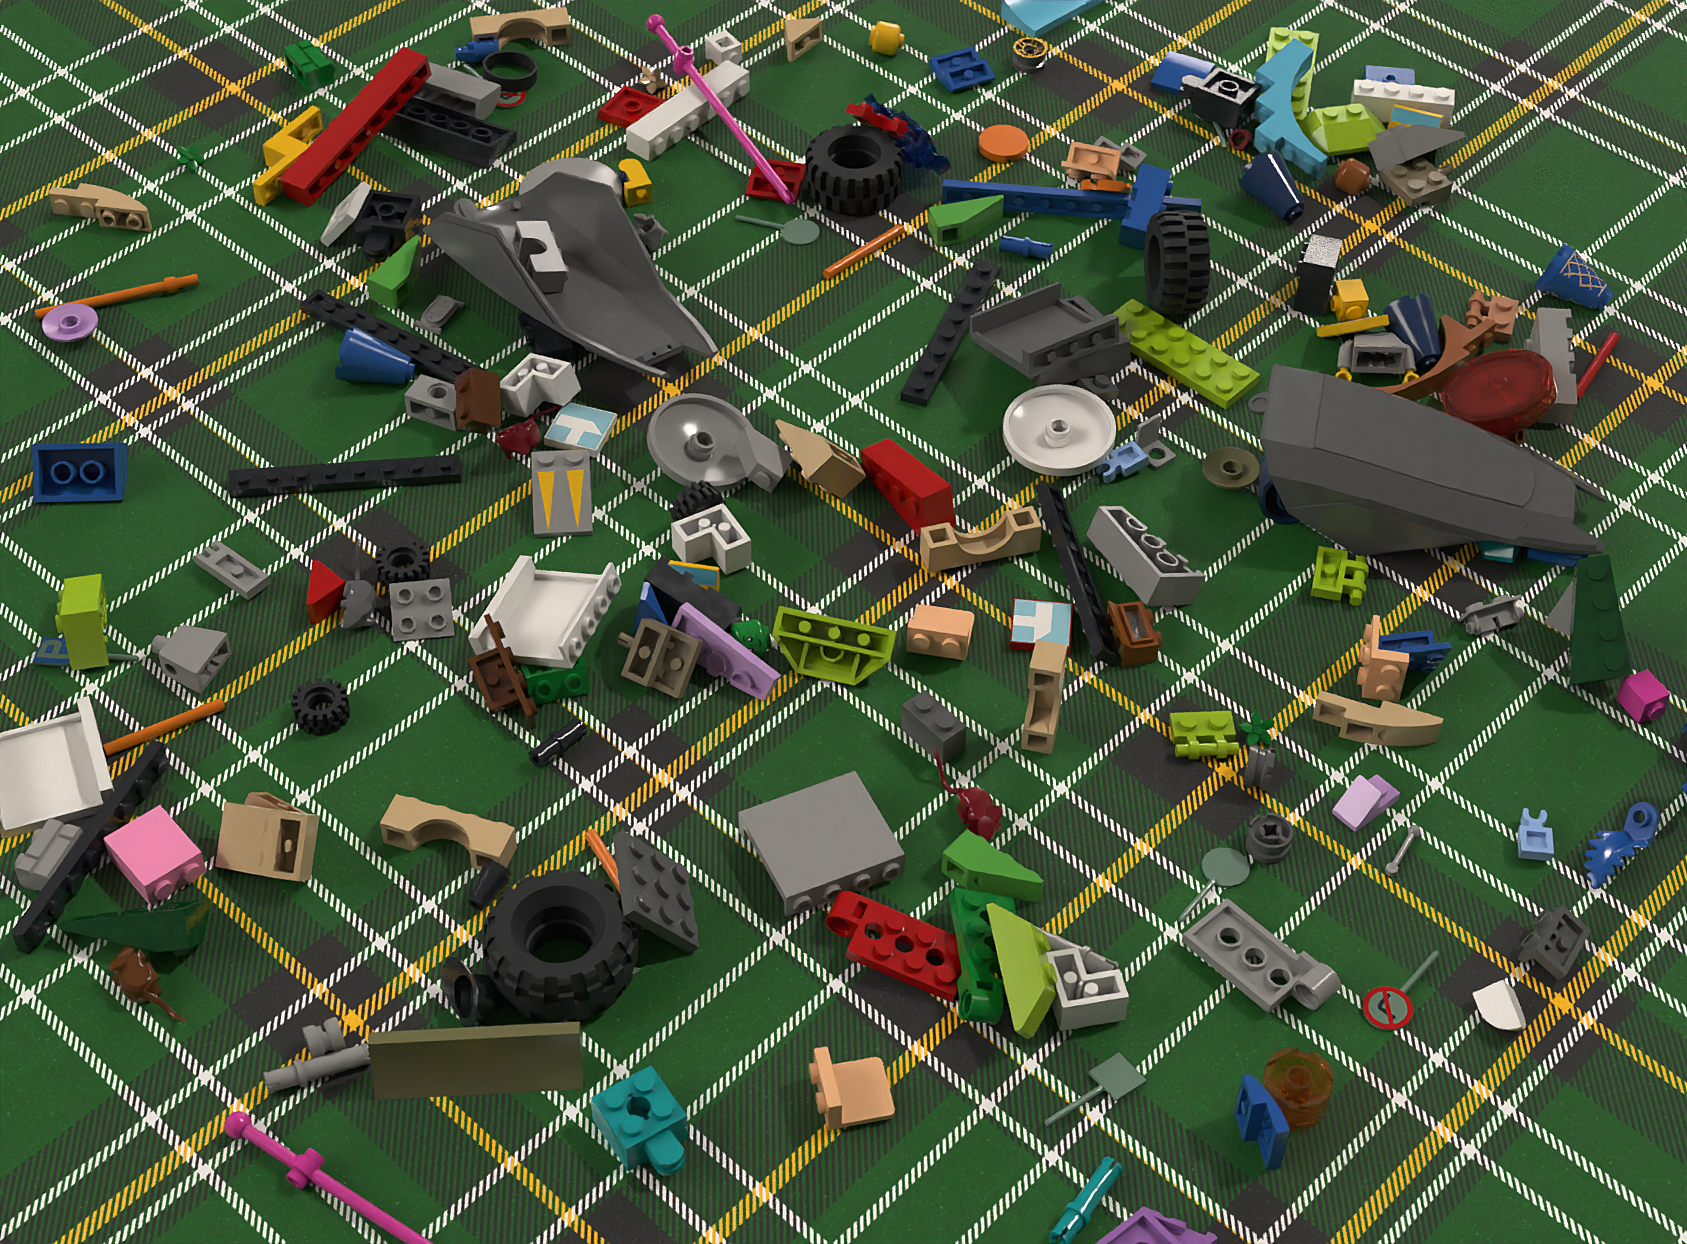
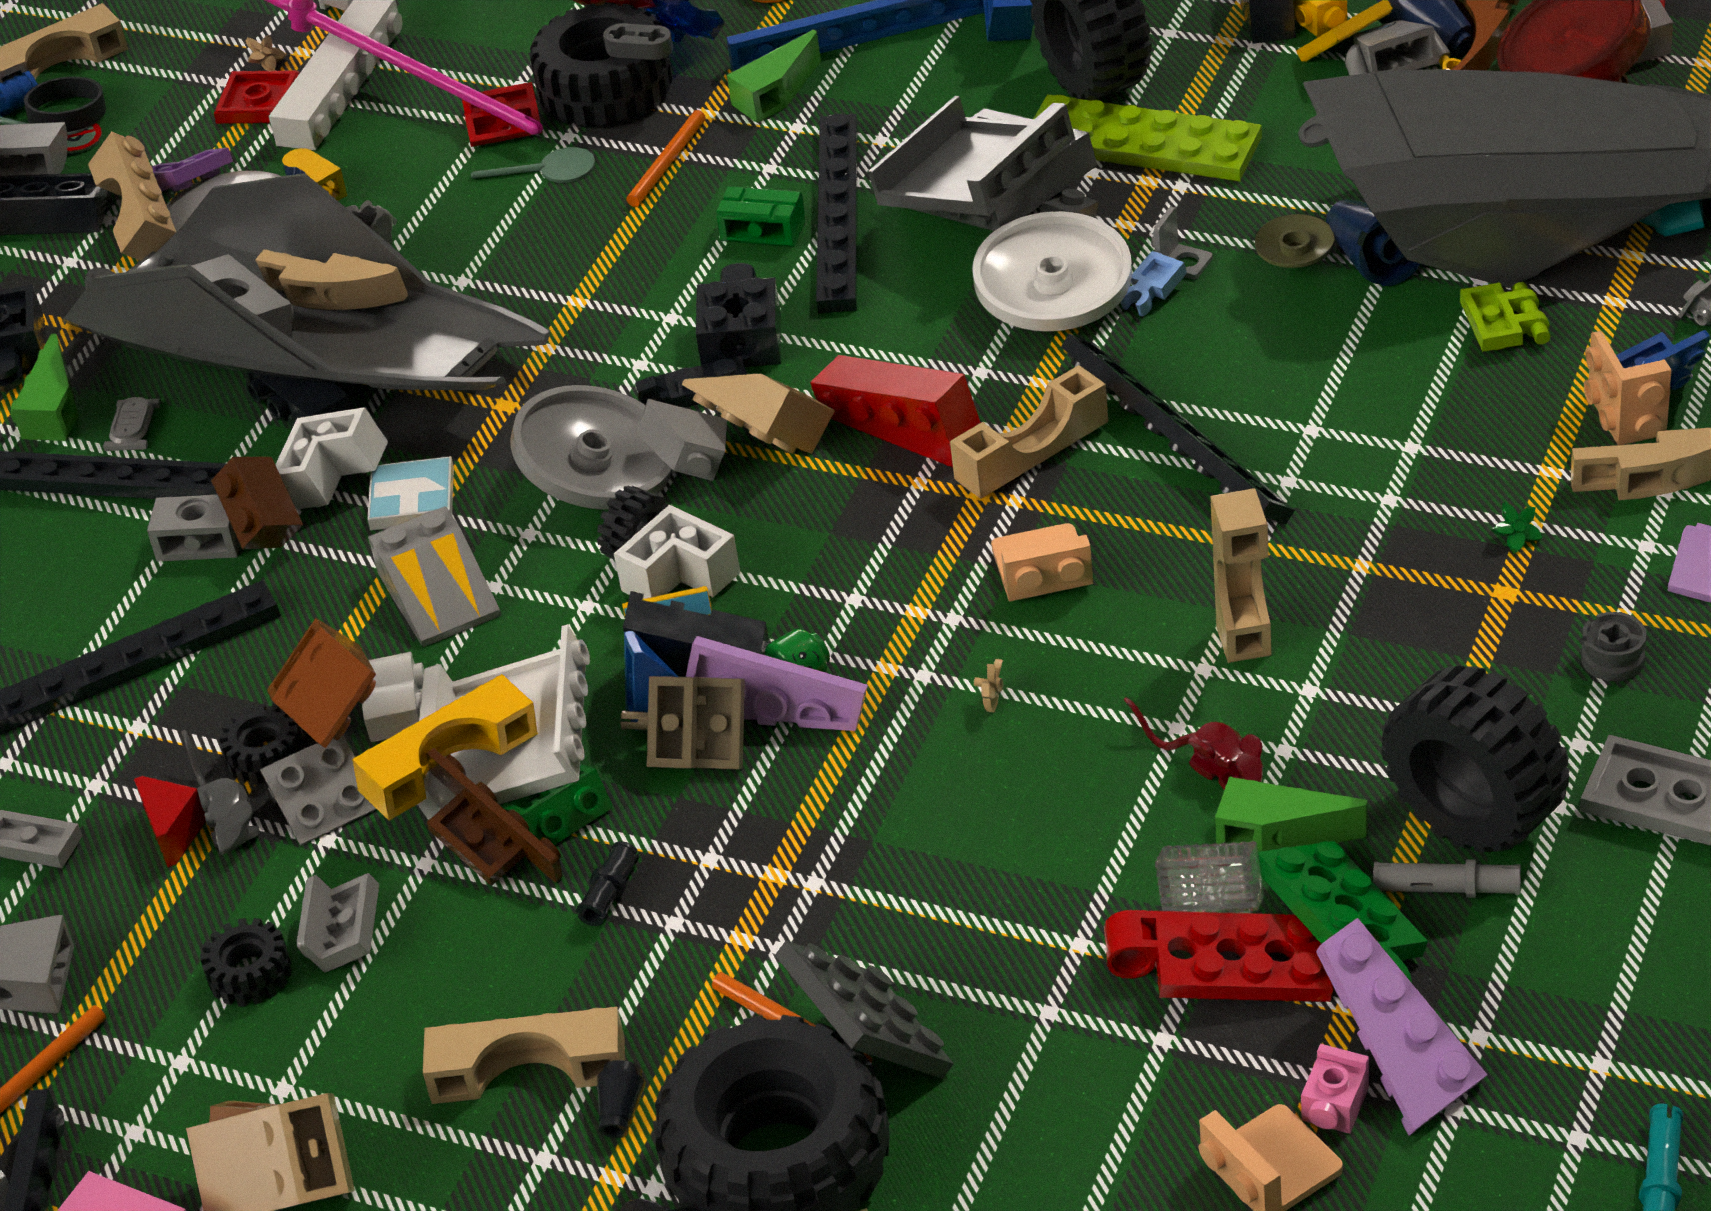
camera: 15 degrees left, 5 degrees down
(371, 360) = (76, 506): blue cone -> none
(385, 701) = (337, 921): none -> light grey bracket
(451, 541) = (323, 682): none -> dark orange slope
(493, 563) = (396, 696): none -> white brick
(513, 173) = (143, 217): none -> tan arch
(521, 437) = (340, 527): dark red animal -> none
(534, 605) = (488, 719): none -> yellow arch
(551, 149) = (180, 174): none -> medium lavender plate
(605, 265) = (333, 285): none -> tan slope
(812, 421) = (669, 387): none -> black hinge
(823, 842) = (1044, 867): light grey panel -> none
(832, 646) = (914, 626): lime wedge -> none
(842, 387) = (739, 318): none -> black brick
(860, 705) = (991, 686): none -> tan plant
(877, 164) = (638, 41): none -> dark grey beam
(898, 317) = (761, 216): none -> green brick
(916, 892) = (1210, 878): none -> clear brick
(917, 1062) = (1335, 1089): none -> bright pink brick
(933, 726) = (1103, 674): dark grey brick -> none
(977, 1053) = (1409, 1041): none -> lavender wing
(1024, 968) = (1415, 907): lime wedge -> none
(1026, 247) = (875, 82): blue pin -> none
(1040, 621) = (1164, 508): tile -> none
(1085, 997) = (1496, 923): white brick -> none
(1113, 1076) = (1596, 1007): sand green piece -> none
(1119, 882) = (1475, 758): none -> black tyre
(1134, 632) = (1291, 464): dark orange window -> none
(1143, 559) = (1251, 380): light grey wedge -> none
(1212, 728) = (1452, 558): lime plate -> none
(1221, 868) = (1576, 706): sand green piece -> none
(1259, 767) = (1551, 567): dark grey wheel -> none

